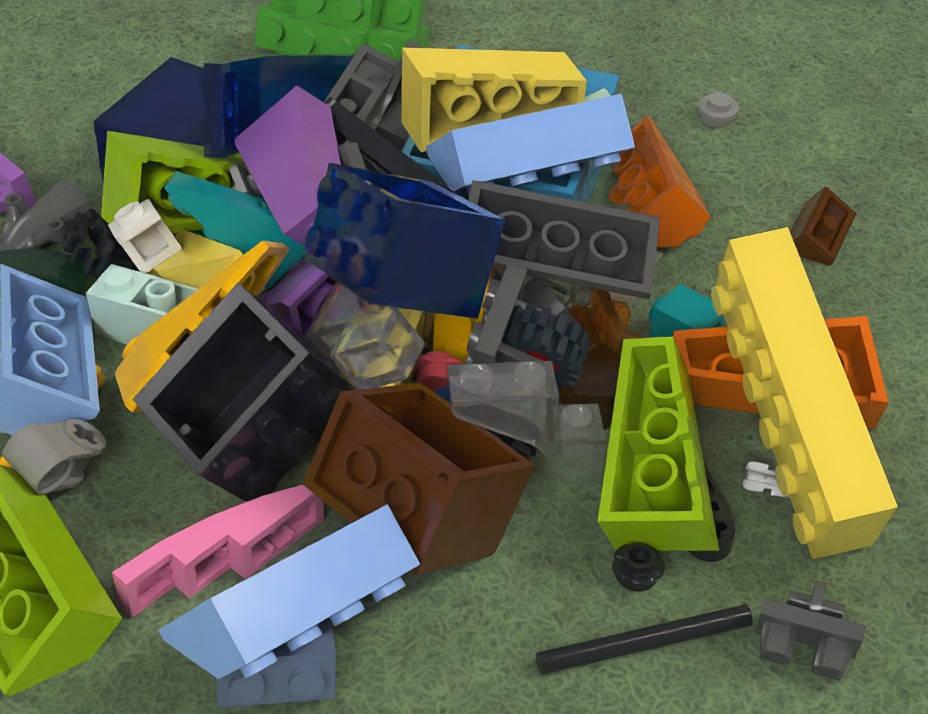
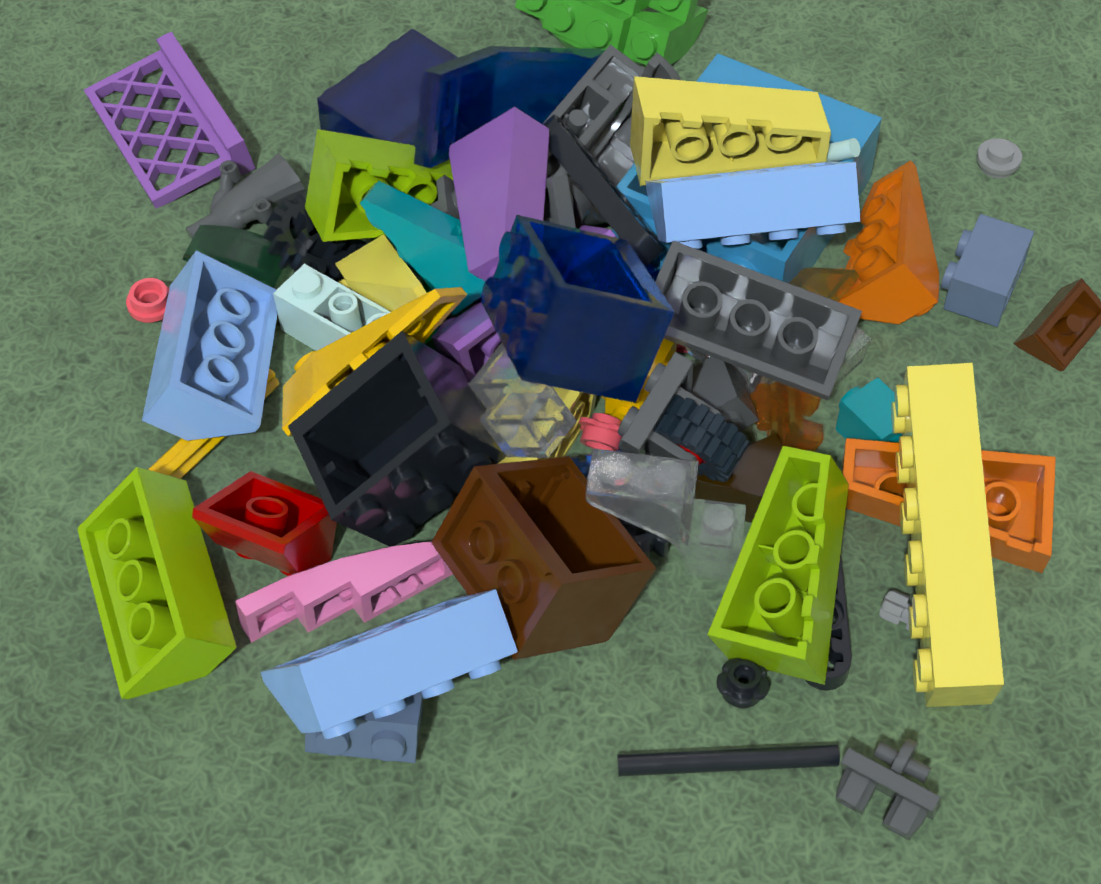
camera: 15 degrees right, 10 degrees up
(53, 453) = (207, 464): light grey piece -> none
(130, 497) = (269, 523): none -> red slope
(144, 235) = (337, 242): white bracket -> none
(742, 190) = (987, 269): none -> sand blue brick

